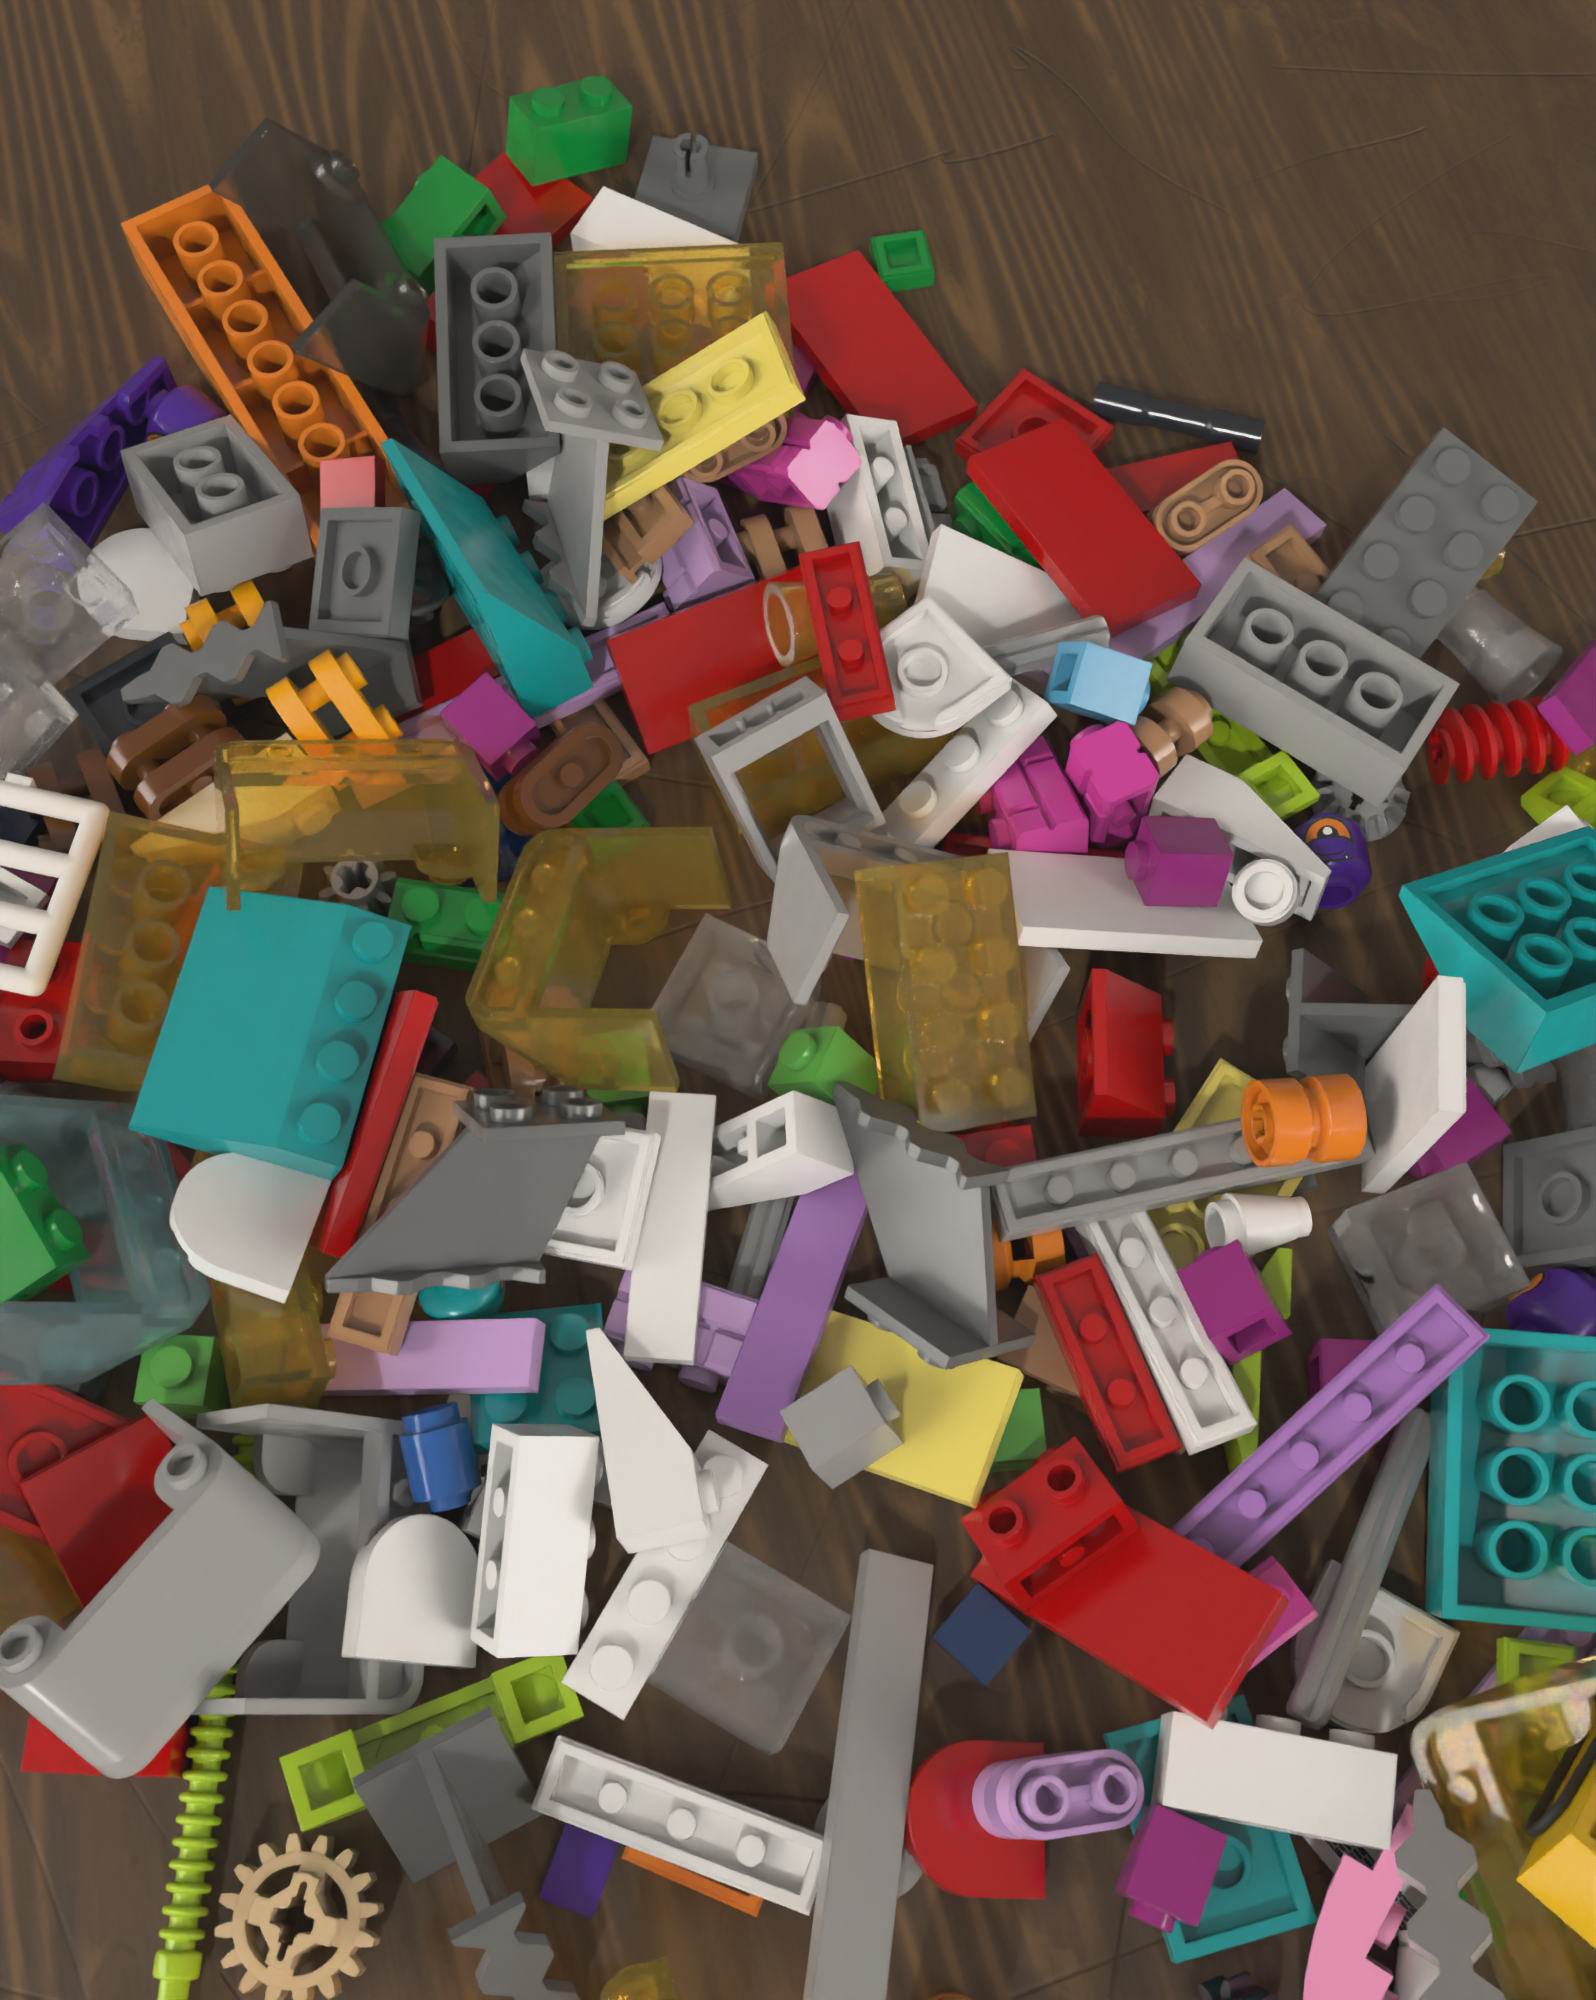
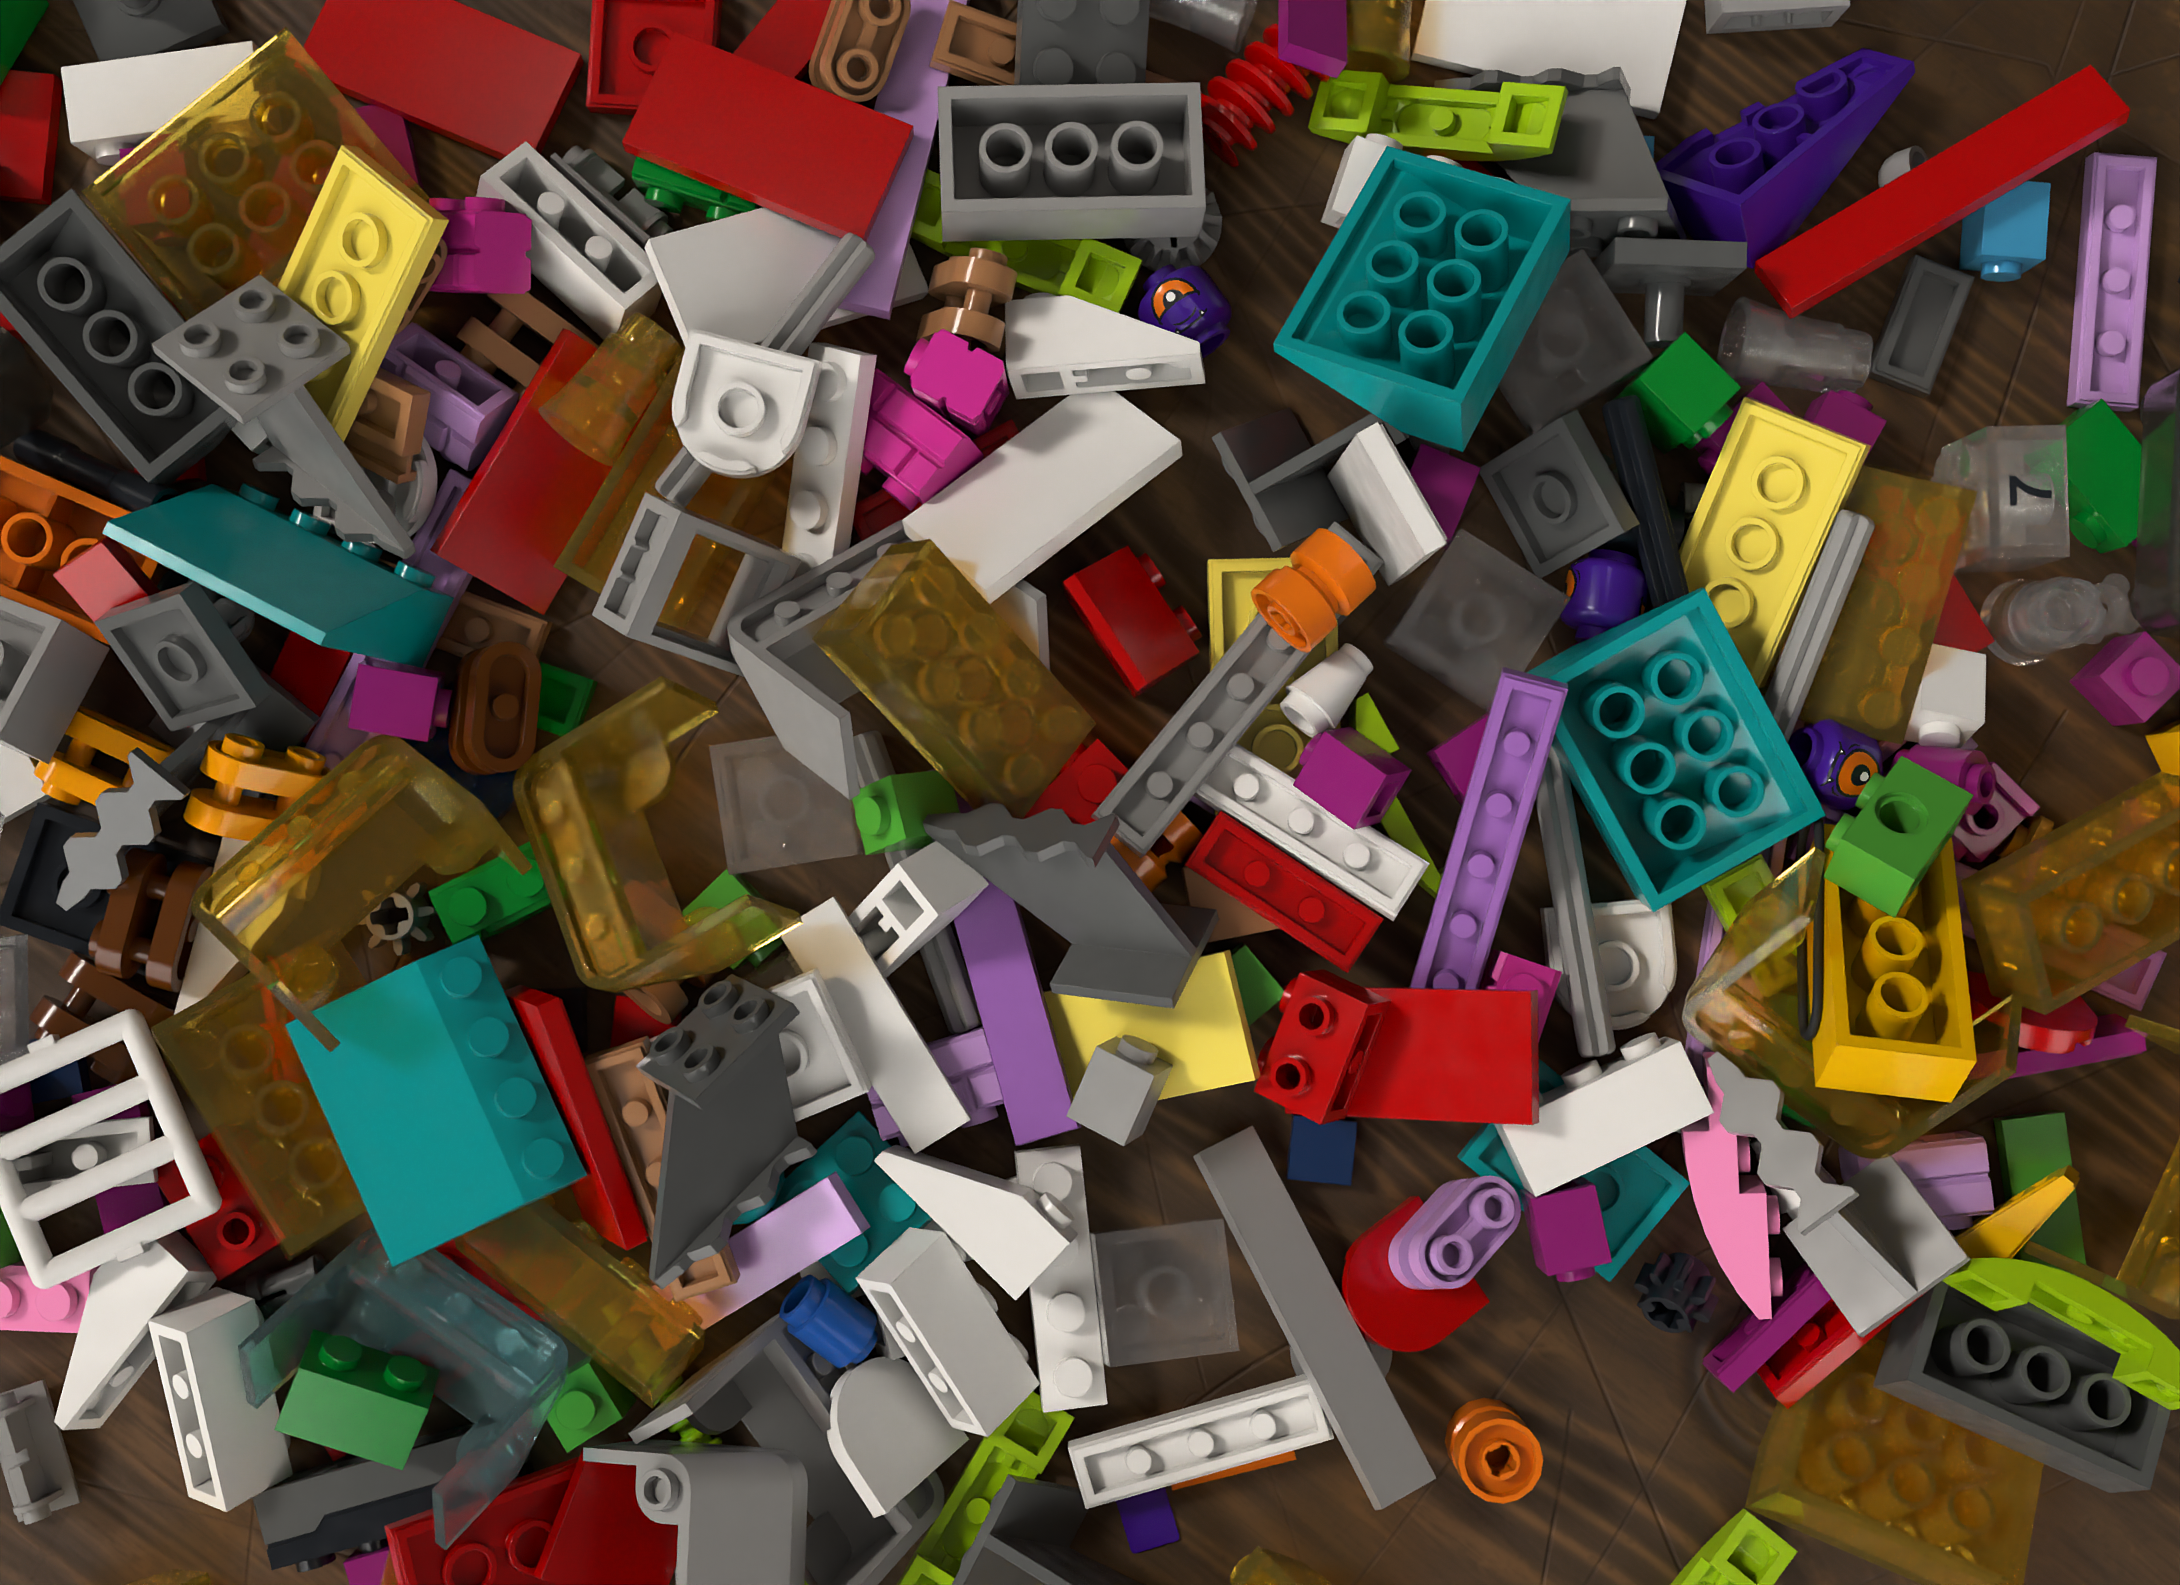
camera: 40 degrees left, 20 degrees up
(247, 1221) = (545, 1265): white tile -> none
(847, 631) = (647, 419): red tile -> none
(1098, 682) = (893, 305): brick -> none
(1179, 861) = (1067, 420): magenta brick -> none
(1266, 892) = (1156, 396): white tile -> none

